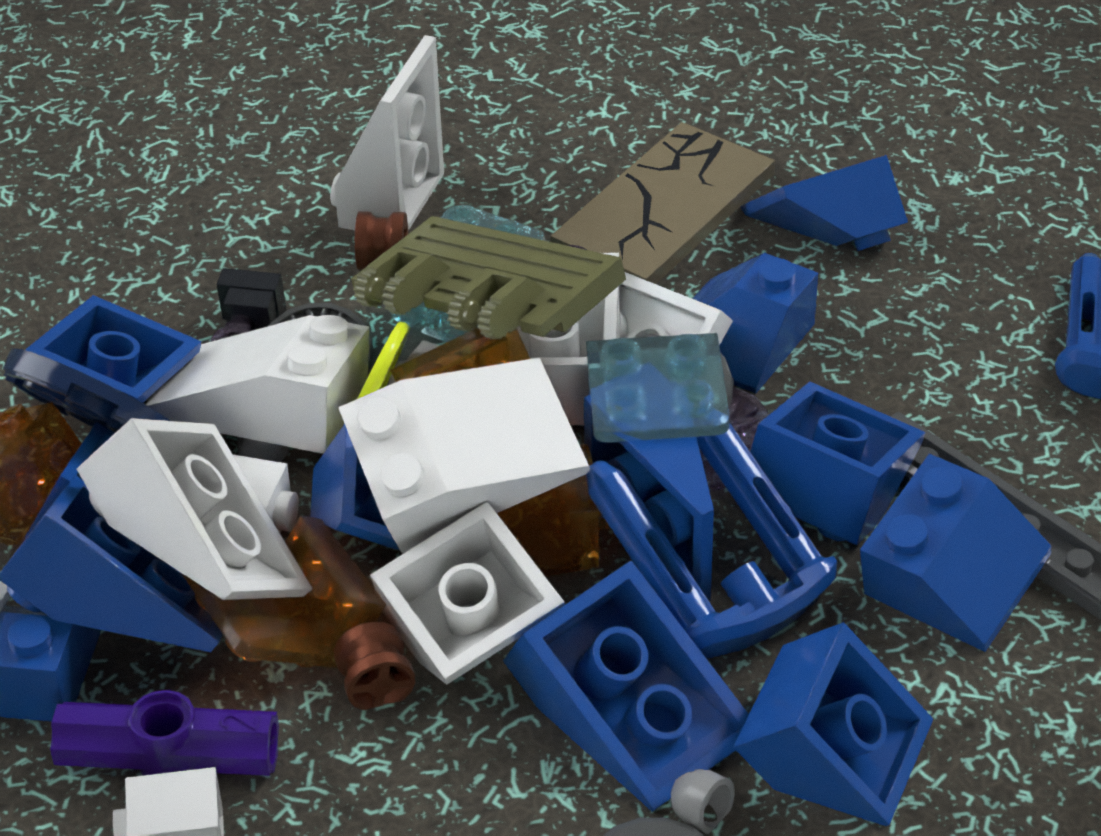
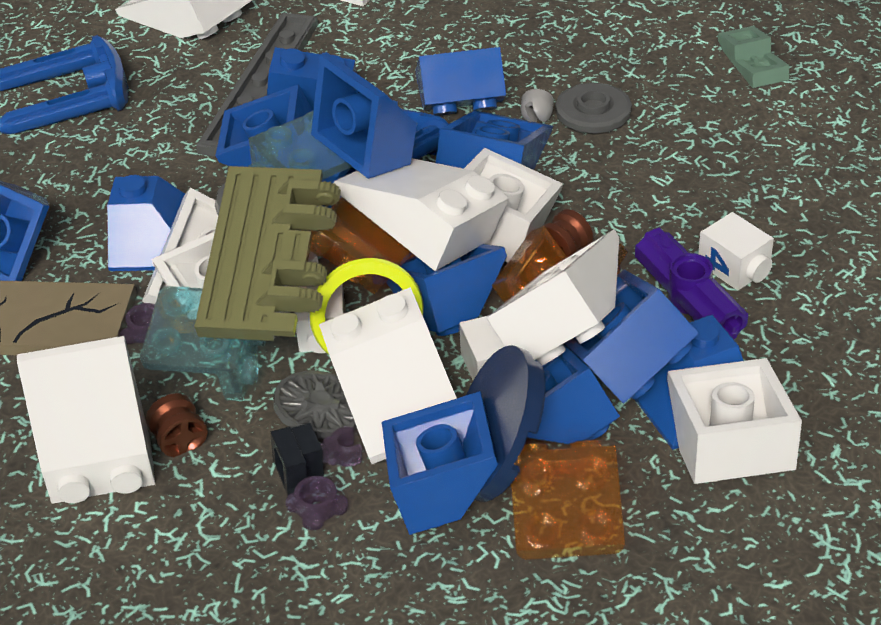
camera: 120 degrees left, 0 degrees up
(190, 306) = (316, 490): none -> clear purple plate
(586, 365) = (360, 121): none -> blue slope

